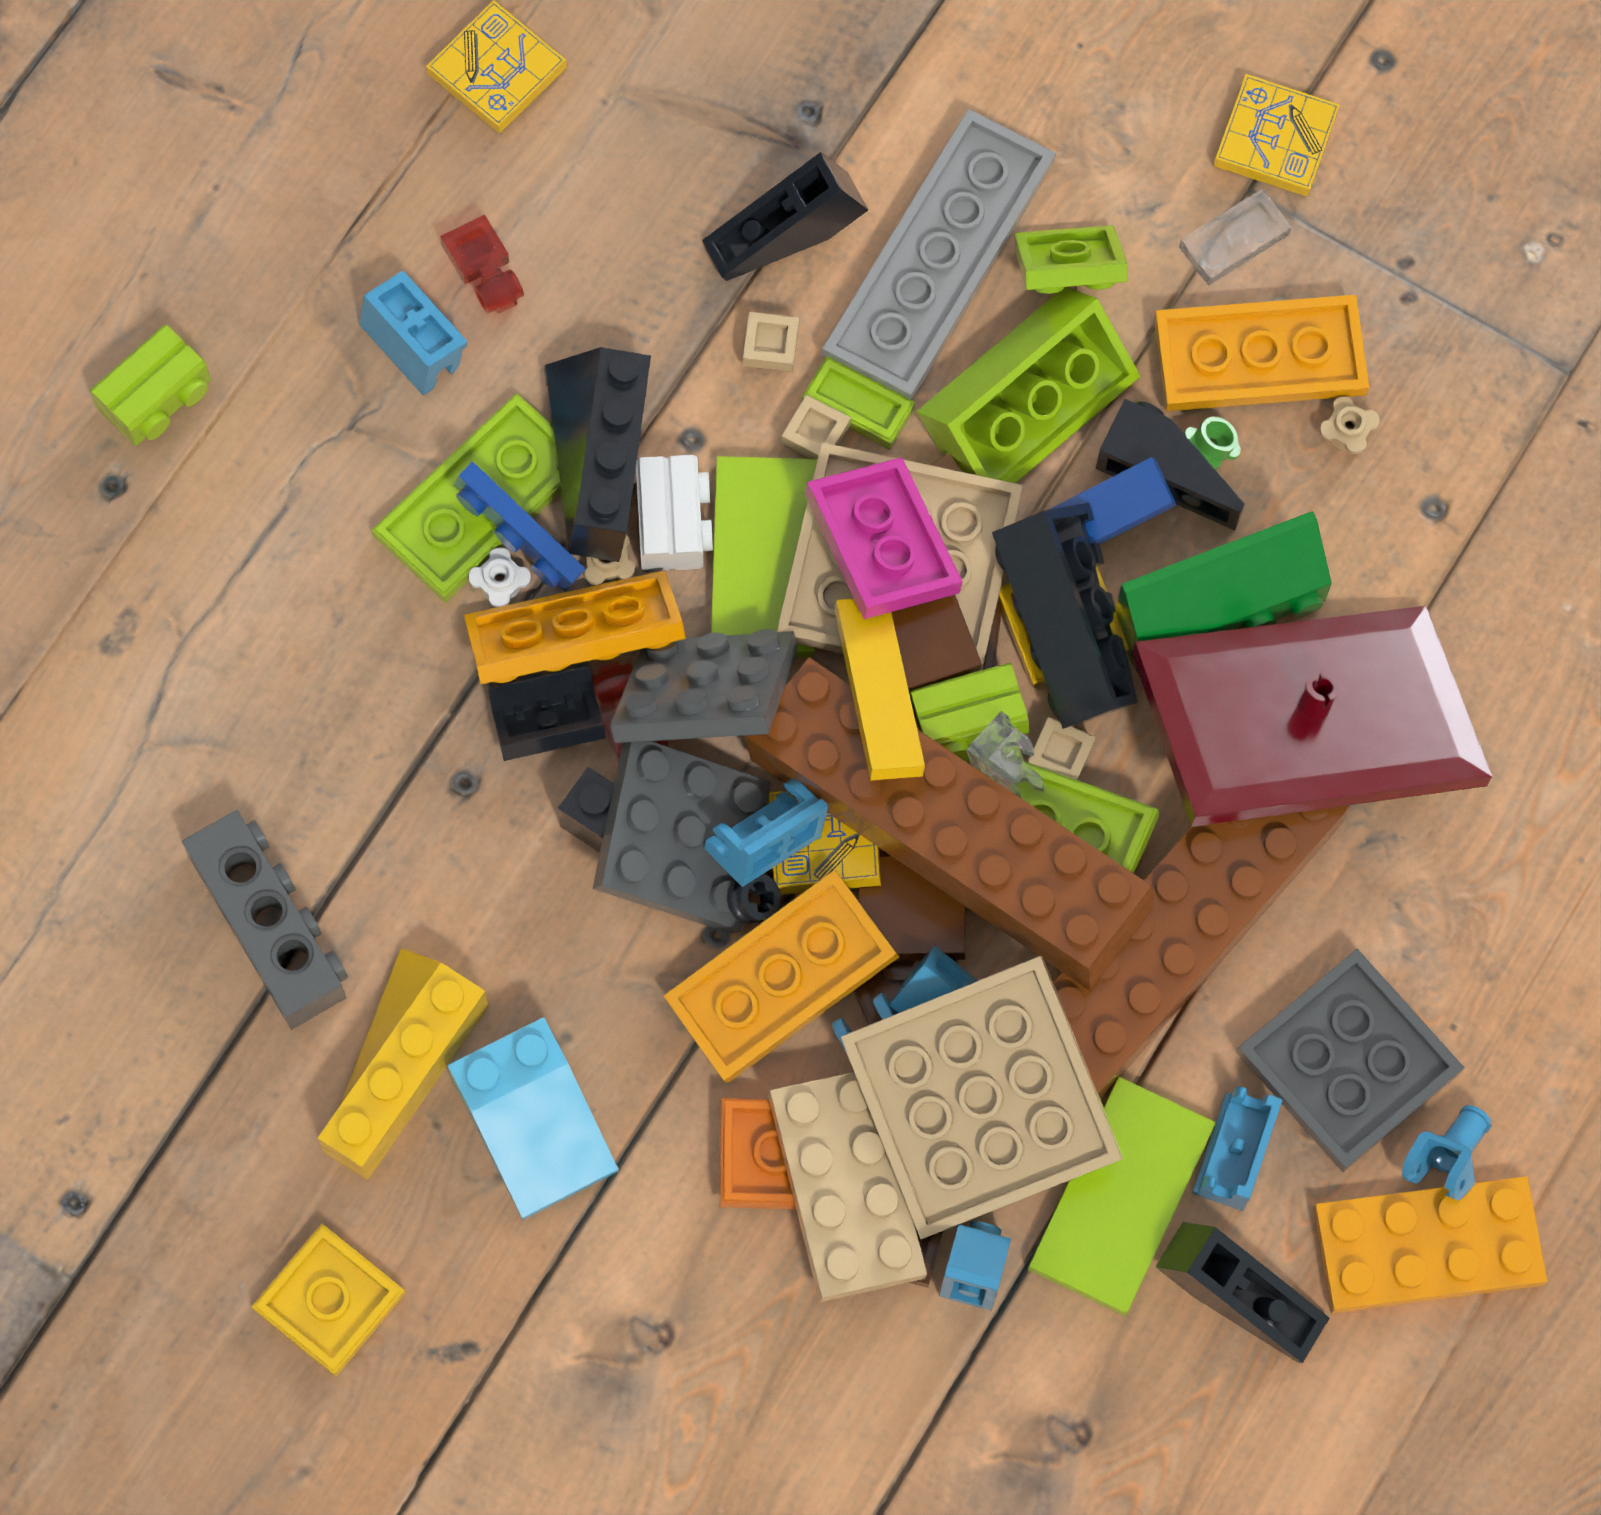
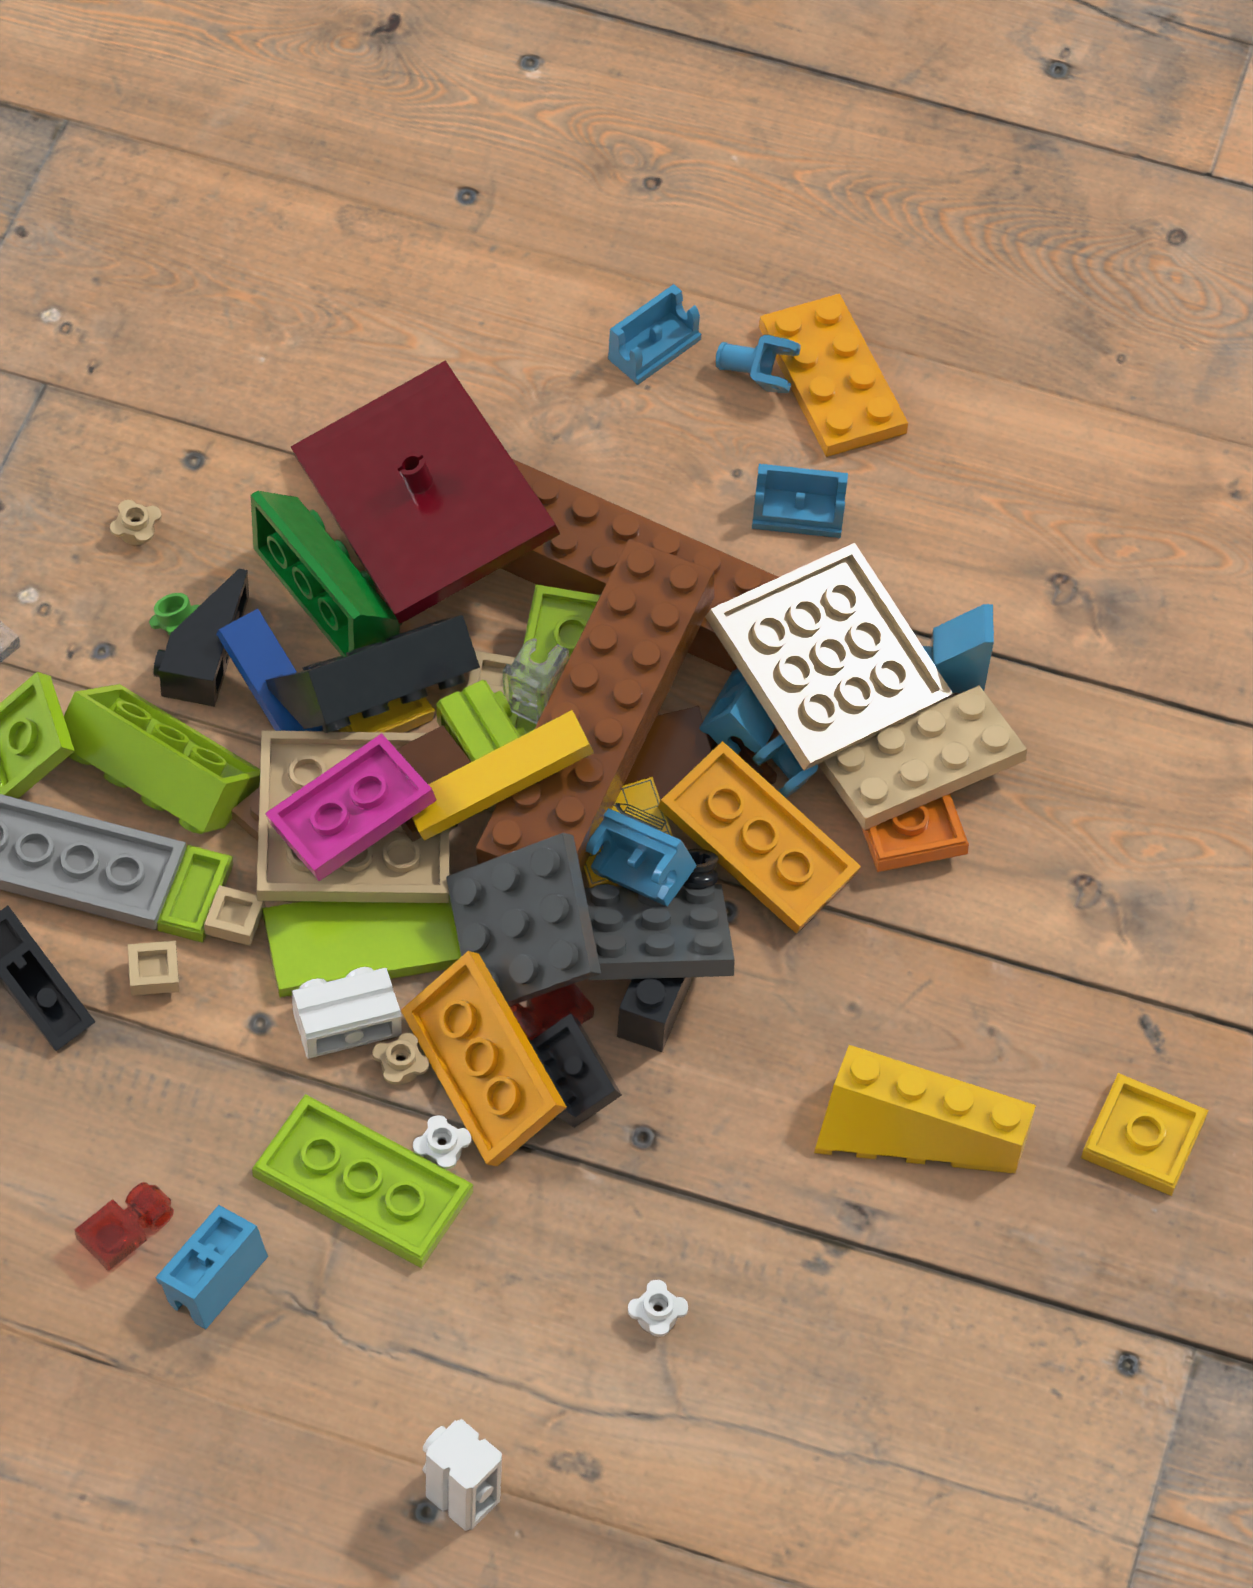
camera: 105 degrees left, 15 degrees down
(113, 501) = (462, 1473): none -> white brick
(151, 386) = (322, 1486): lime brick -> none
(255, 757) = (657, 1322): none -> white plate
(296, 993) = (782, 1312): dark grey brick -> none
(517, 528) = (397, 1123): blue plate -> none
(532, 1118) = (934, 1006): medium azure slope -> none
(597, 431) = (301, 1070): black wedge -> none
(1119, 1213) = (912, 576): lime tile -> none
(1241, 1289) = (913, 485): black slope -> none
(1261, 352) = (81, 593): light orange plate -> none
(1350, 1060) = (701, 441): dark grey plate -> none
(1515, 1043) = (653, 335): none -> dark azure hinge

